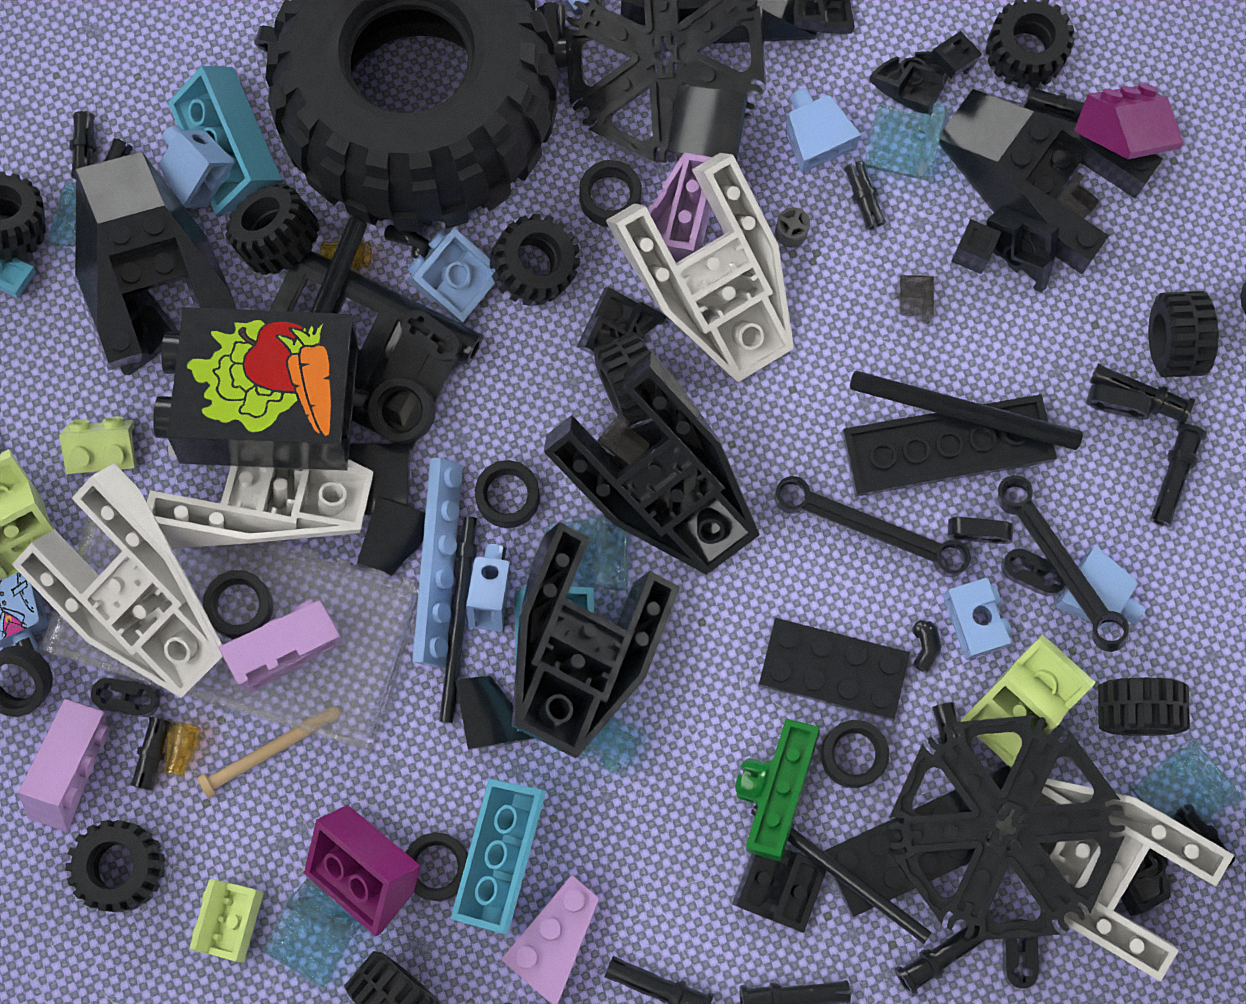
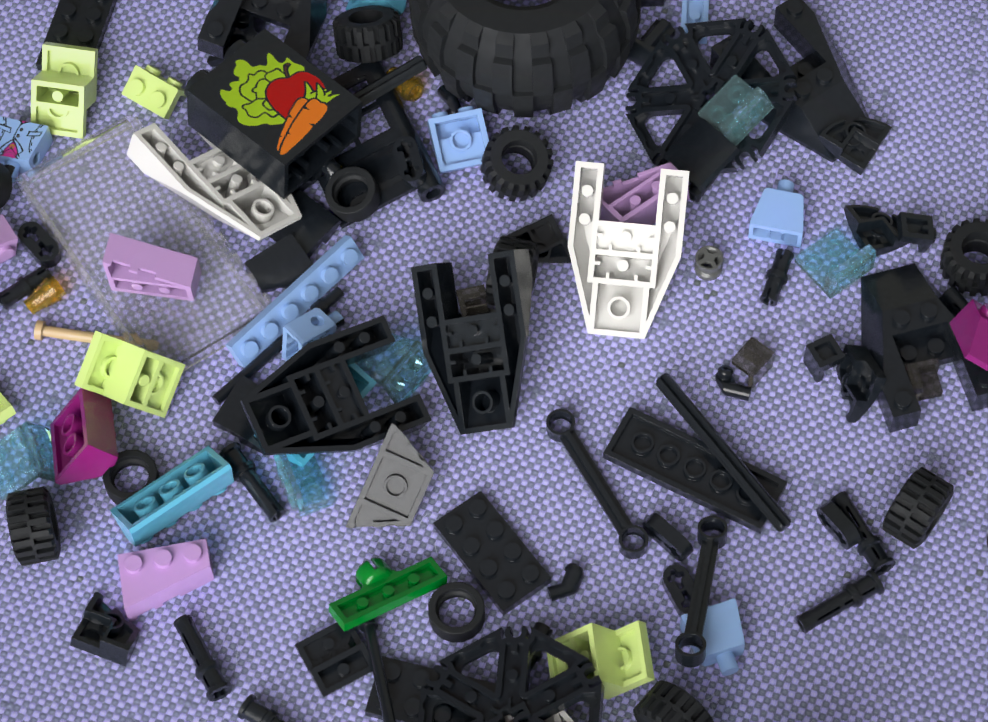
camera: 45 degrees right, 15 degrees down
(141, 603) = (92, 180): white wedge -> none
(220, 584) = (151, 211): black tyre -> none
(351, 770) = (129, 374): none -> yellowish green bracket
(507, 468) = (372, 274): black tyre -> none
(539, 773) = (244, 472): none -> black pin
(601, 170) = (610, 143): black tyre -> none
(697, 679) = (393, 484): none -> wing
(709, 53) = (736, 109): none -> clear light blue bracket
(911, 338) = (729, 386): none -> black arm
(972, 637) = (615, 573): light blue brick -> none

